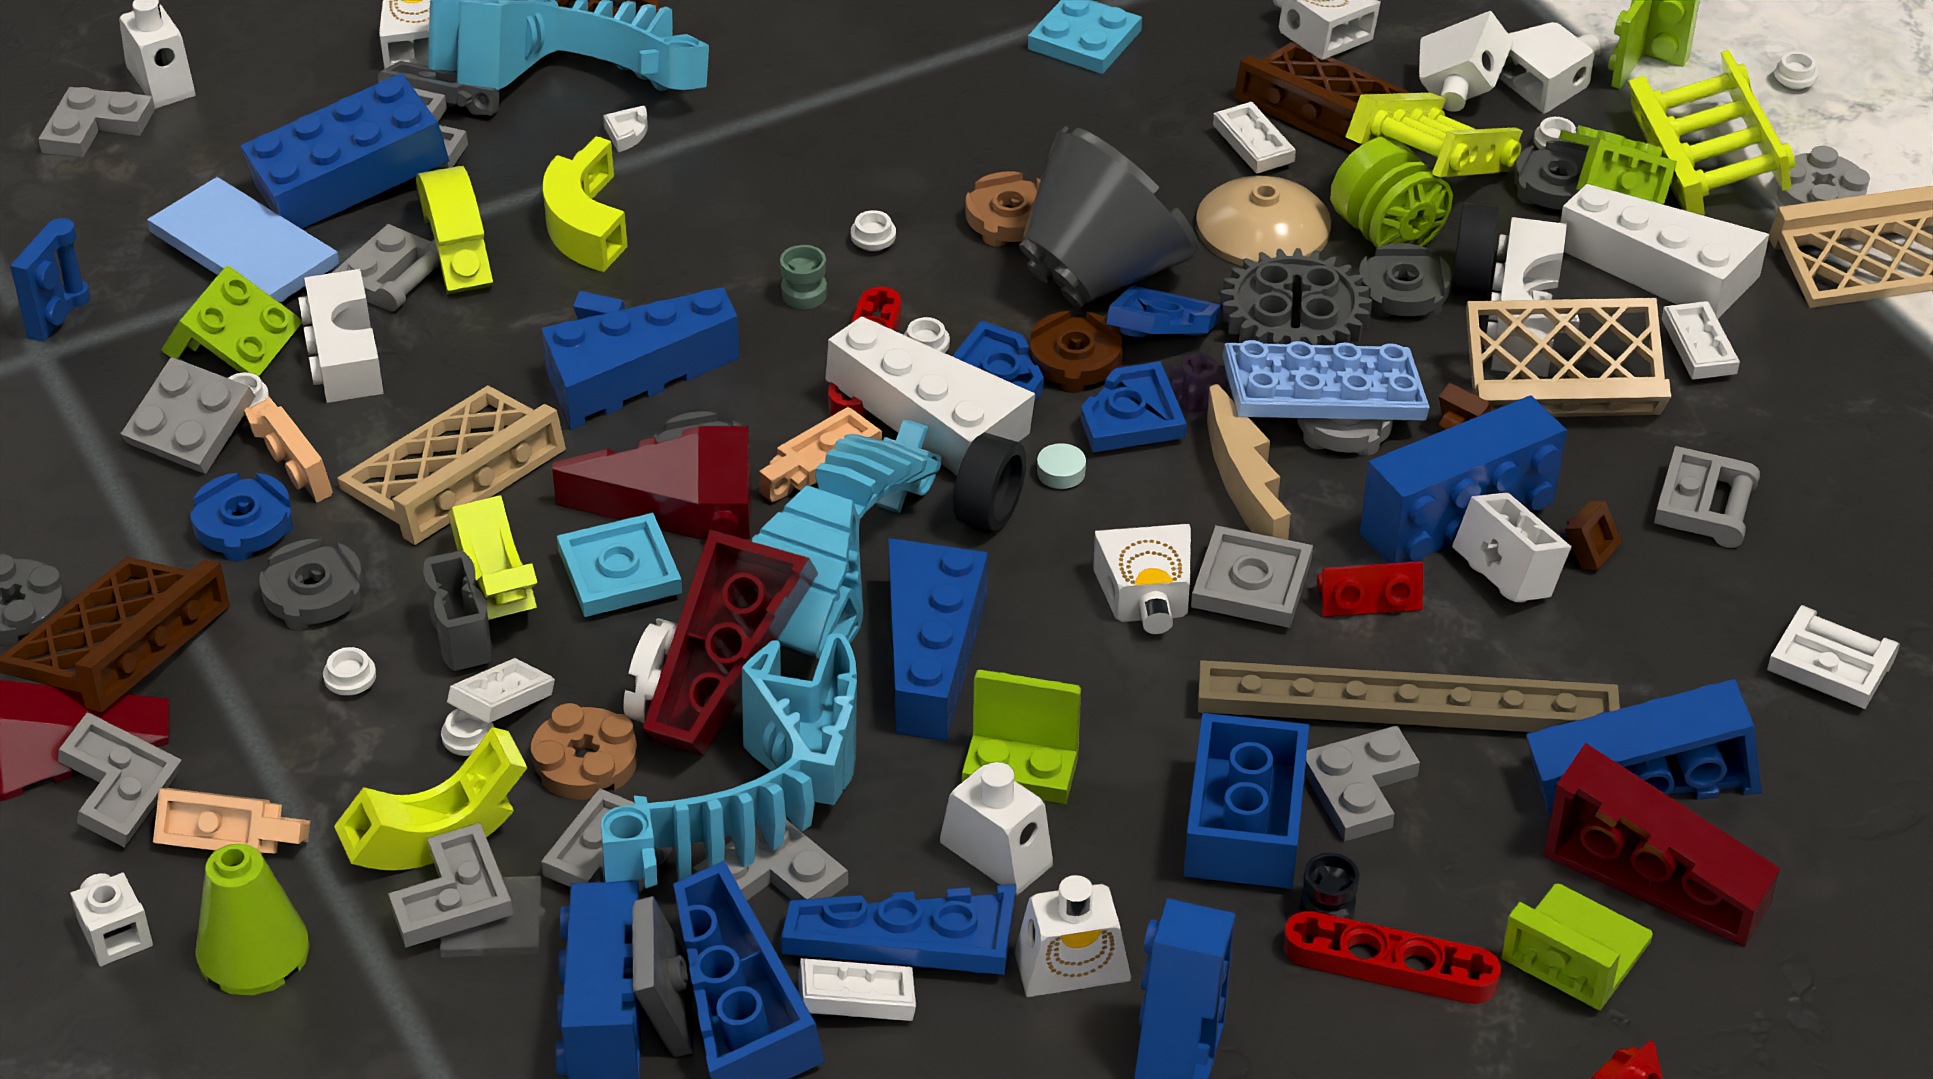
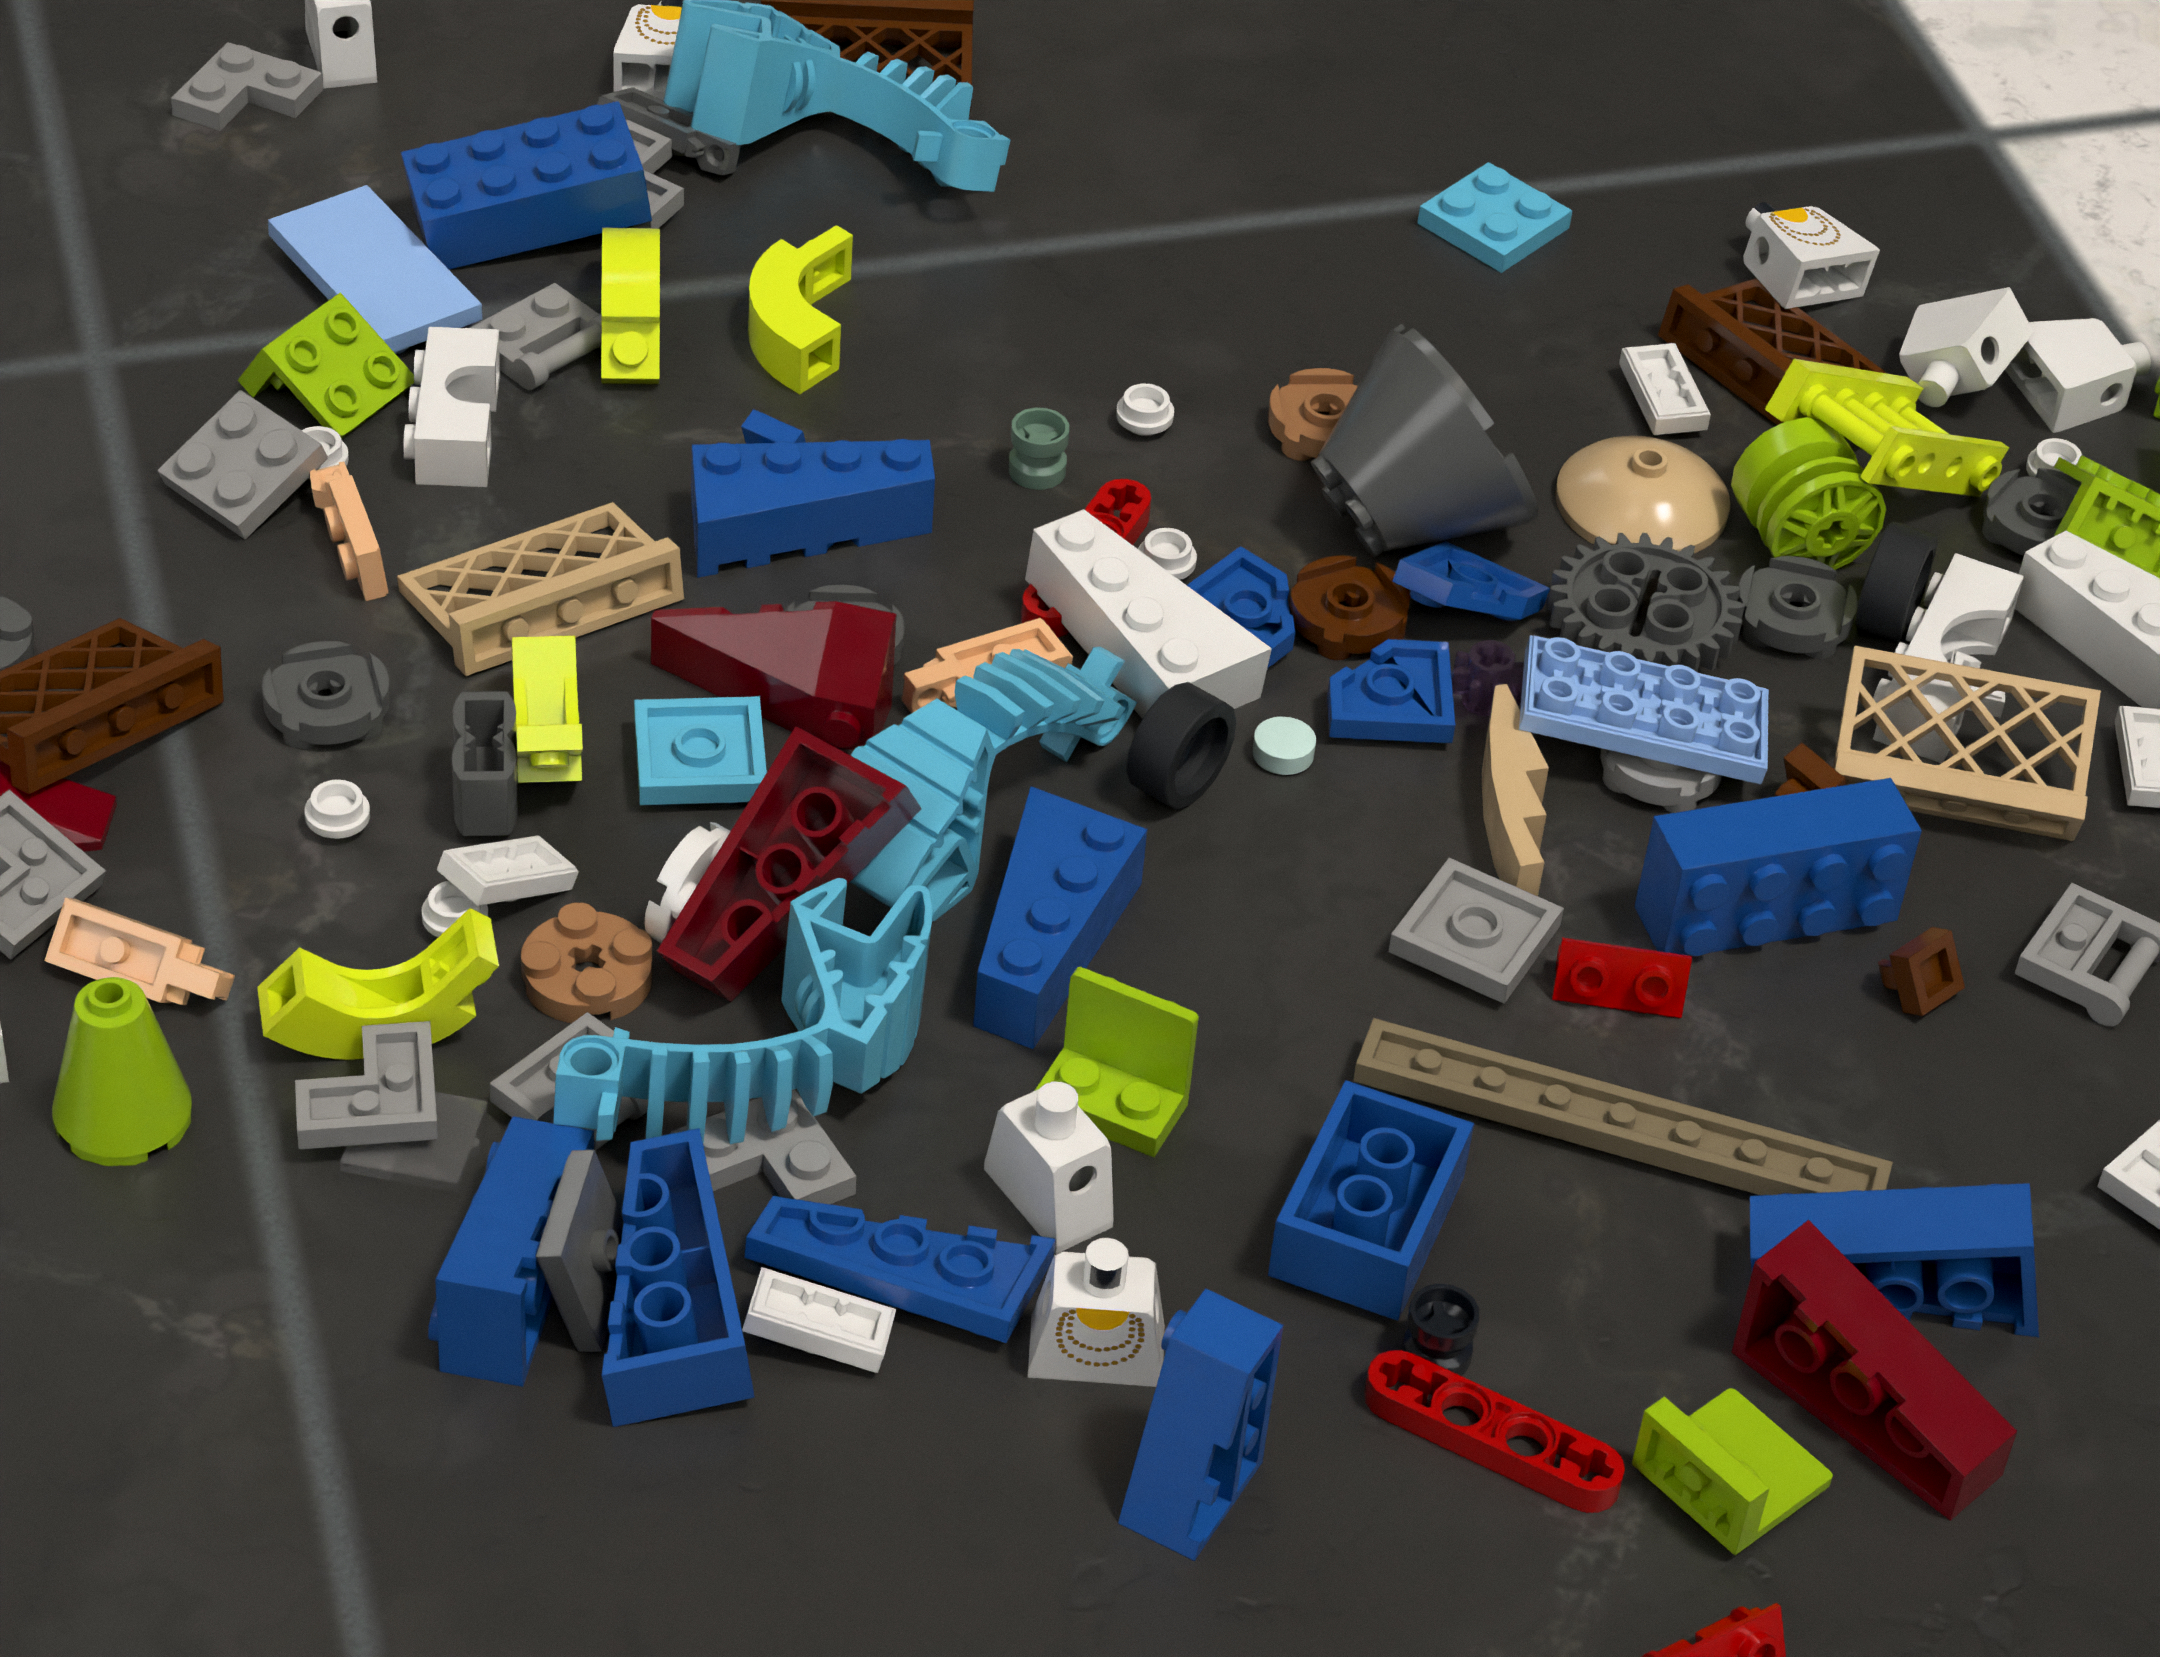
camera: 10 degrees right, 0 degrees up
(38, 282) = (112, 269): blue plate -> none
(239, 536) = (298, 601): blue plate -> none
(626, 127) = (885, 222): white tile -> none
(1145, 573) = (1344, 898): white torso -> none
(1349, 778) = (1517, 1197): light grey plate -> none
(1511, 547) = (1813, 963): white brick -> none

